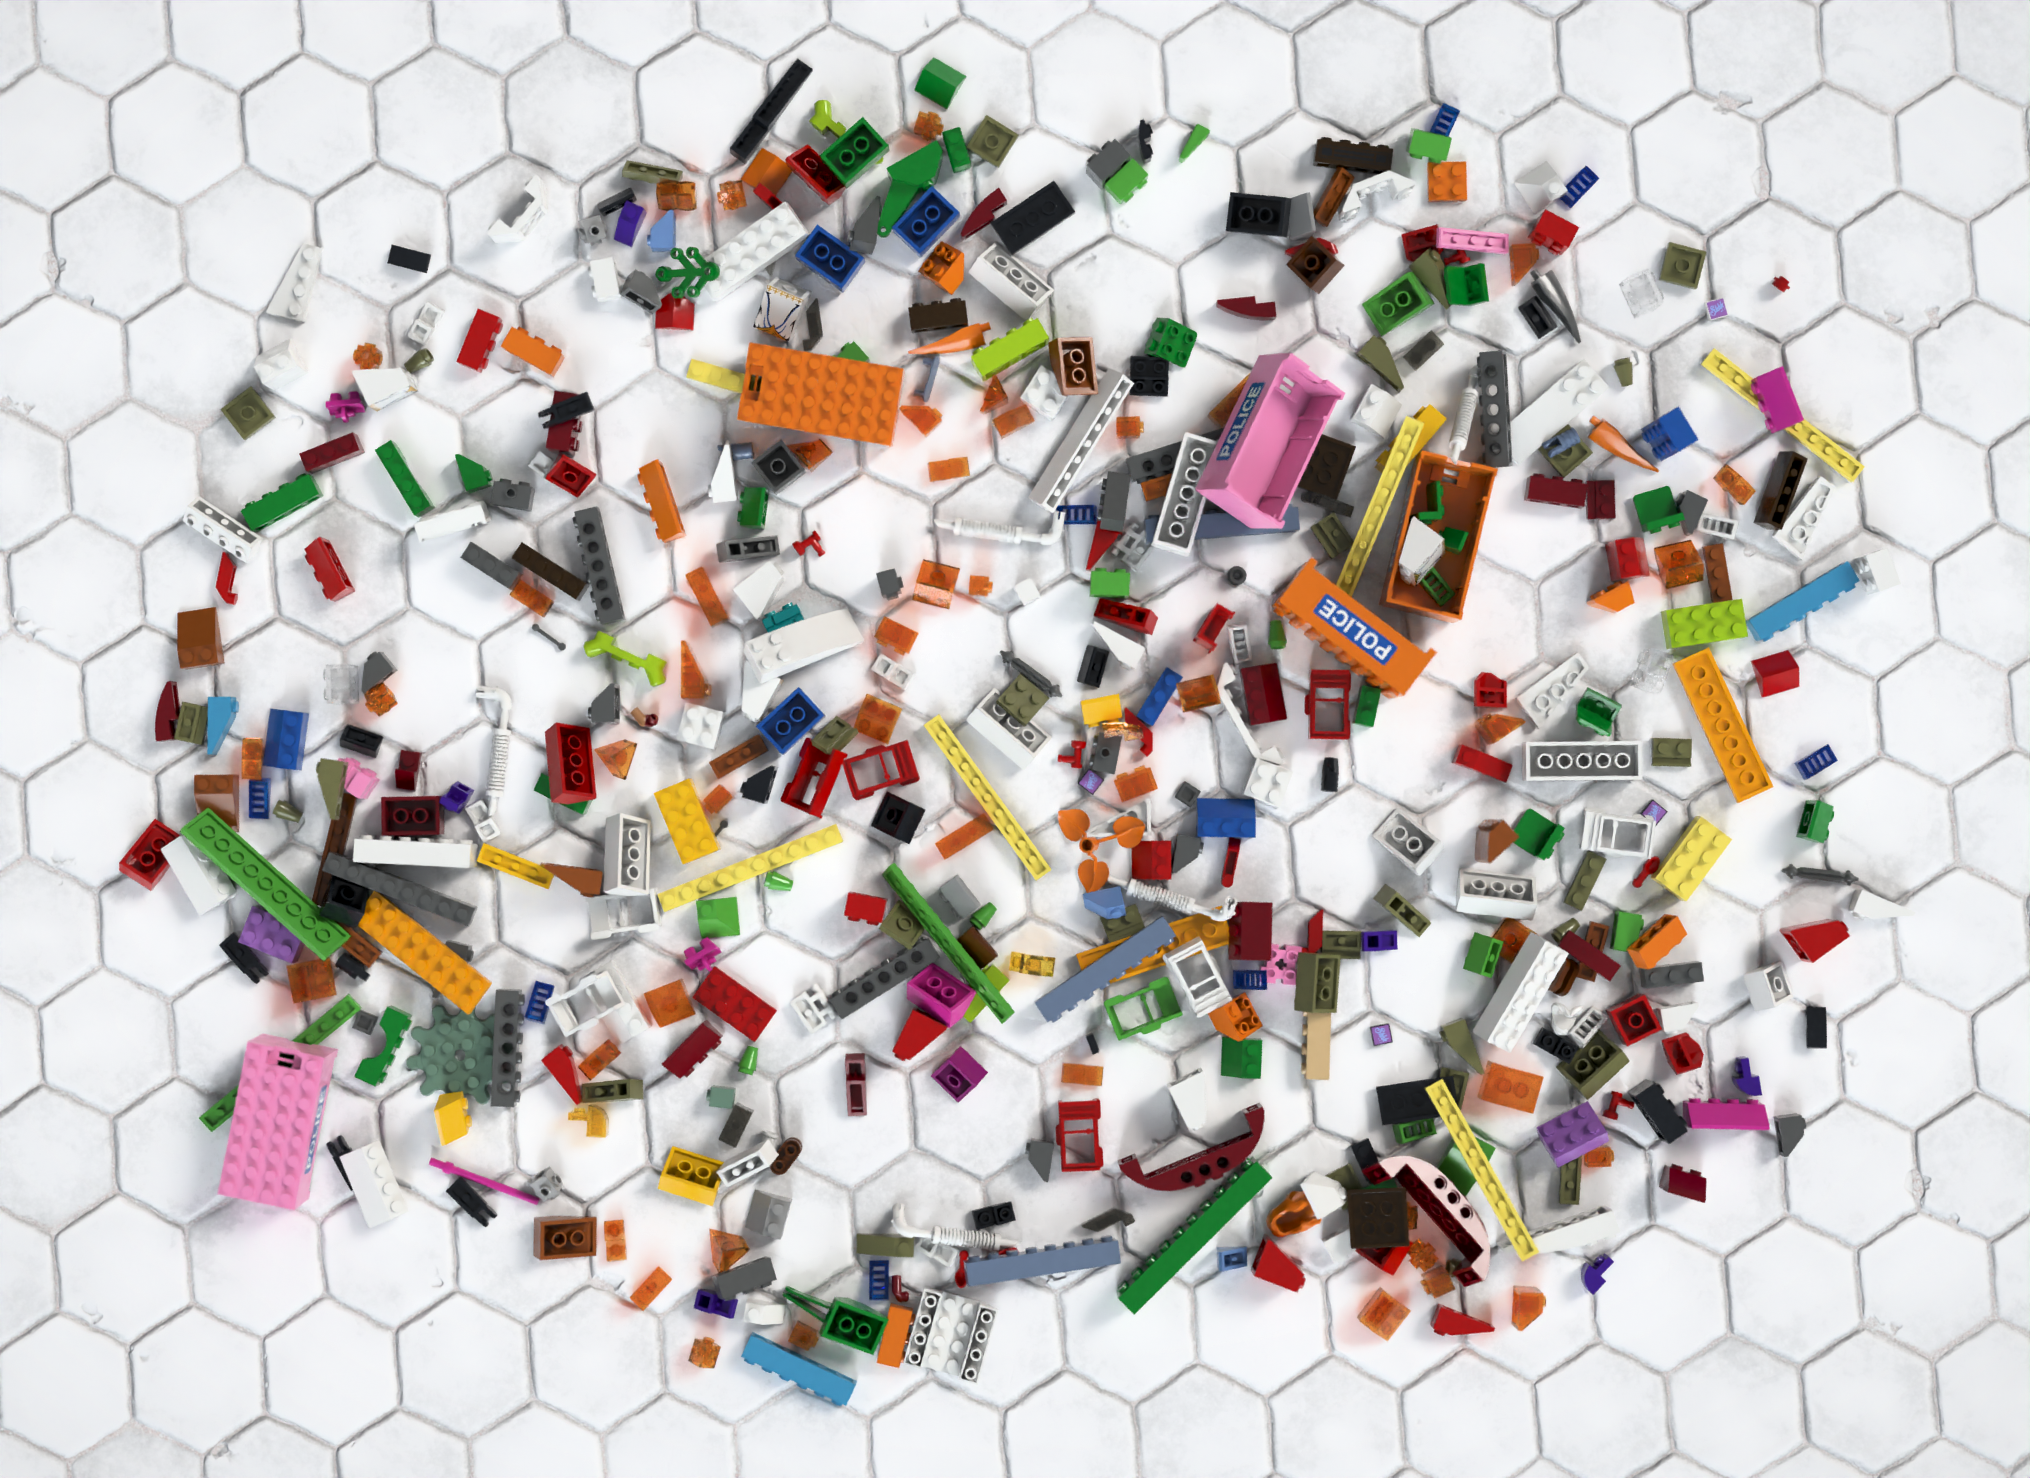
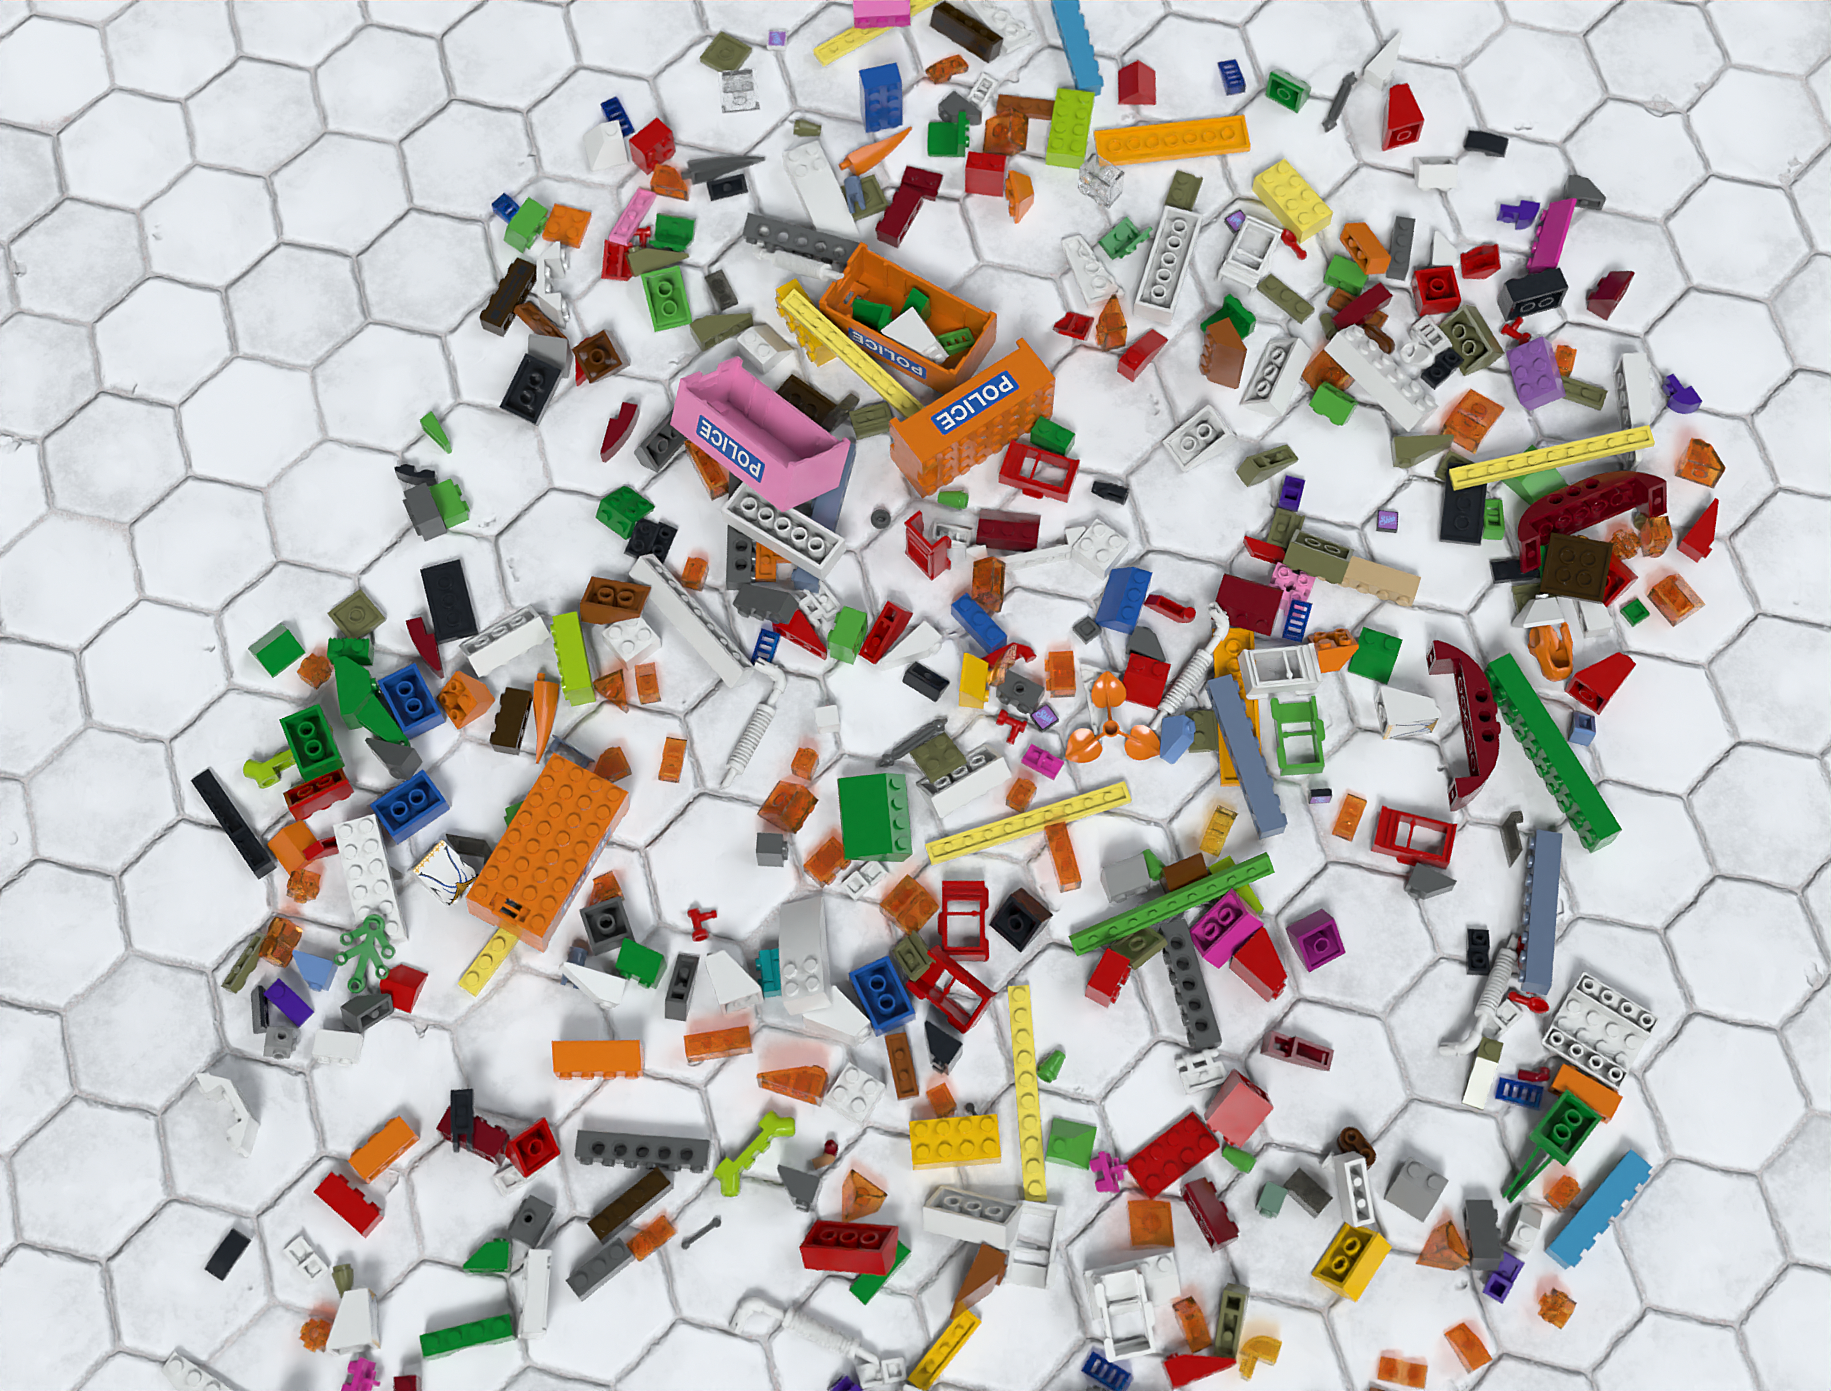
camera: 70 degrees left, 20 degrees down
(788, 1049) = (1238, 1109): none -> slope
(946, 663) = (875, 817): none -> green slope
(1009, 783) = (1021, 795): none -> clear orange brick
(1046, 792) = (1042, 762): none -> dark pink hips
(1245, 351) = (660, 445): none -> dark grey slope
(1360, 1279) = (1635, 612): none -> green tile

